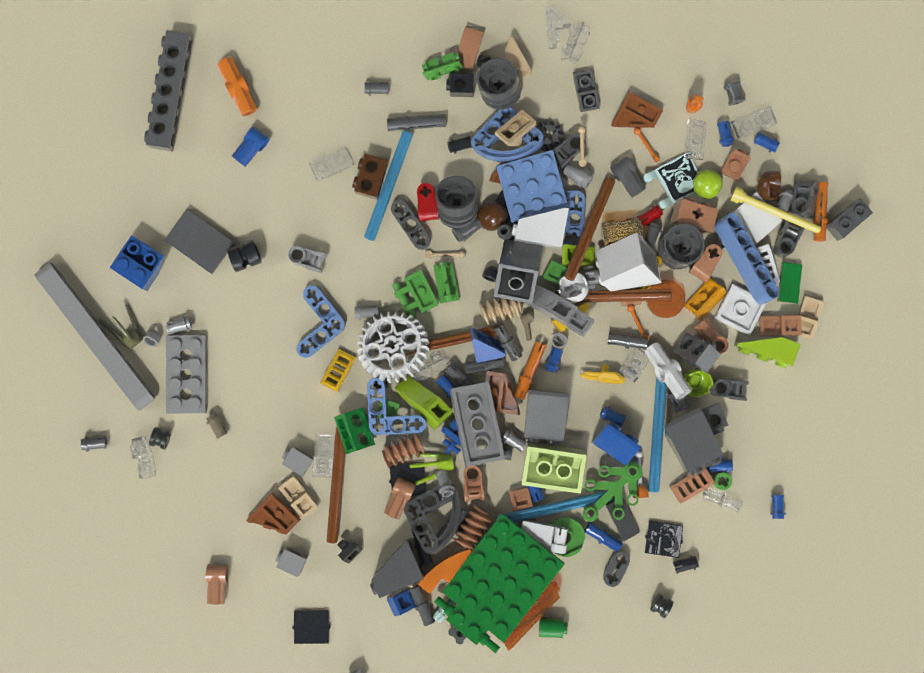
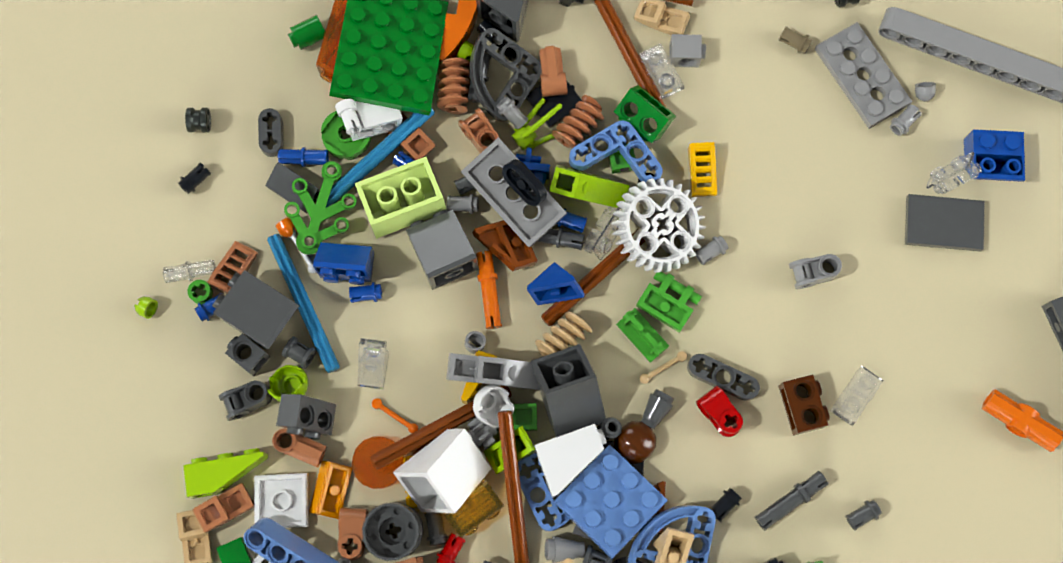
camera: 145 degrees right, 10 degrees down
(130, 337) = (948, 77): olive plant -> none
(174, 268) = (945, 177): none -> clear hinge
(244, 255) = (887, 230): black wheel -> none
(253, 142) = (960, 366): blue piece -> none
(326, 319) = (750, 217): medium blue beam -> none
(388, 185) = (777, 409): dark azure axle -> none
(449, 548) = (465, 51): none -> lime hinge
(456, 202) = (697, 437): dark grey wheel -> none
(468, 423) = (524, 182): none -> black plate
(473, 366) = (558, 255): dark grey axle -> none
(490, 273) = (601, 373): black hinge -> none
(507, 341) = (533, 306): dark grey pin -> none
(525, 319) = (527, 345): dark tan hand -> none
(554, 360) = (468, 316): blue pin -> none
(604, 376) = (400, 331): yellow piece -> none
(627, 341) = (395, 387): dark grey pin -> none
(663, 539) = (234, 193): piece -> none
(668, 370) = (329, 376): white piece -> none
(763, 490) = (146, 307): none -> lime hinge
(777, 507) = (120, 298): blue pin -> none

